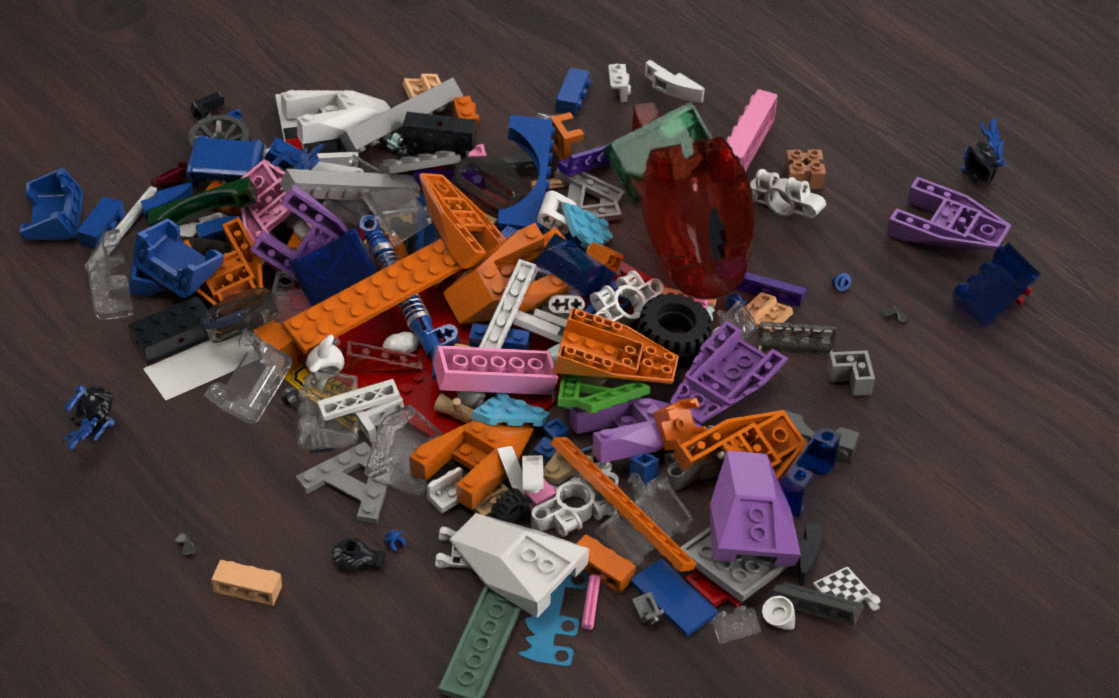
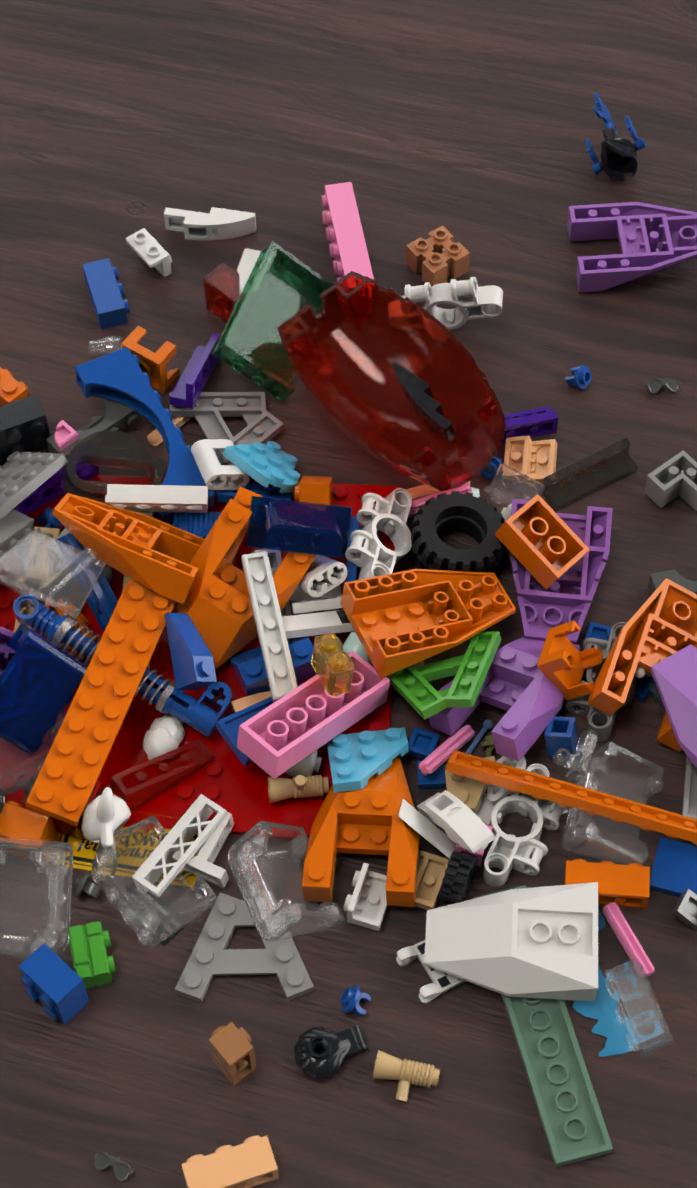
camera: 30 degrees left, 10 degrees up
(226, 432) = (53, 984): none -> blue brick
(262, 432) = (90, 954): none -> bright green brick
(298, 521) = (232, 1052): none -> medium nougat brick
(391, 591) = (406, 1072): none -> tan piece
(446, 299) = (190, 656): none -> blue slope
(499, 209) = (158, 498): none -> white fence
(525, 345) = (332, 664): none -> clear yellow brick
(561, 637) = (638, 1008): none -> clear brick
(576, 438) = (446, 749): none -> bright pink axle
(720, 350) = (541, 541): none -> orange brick

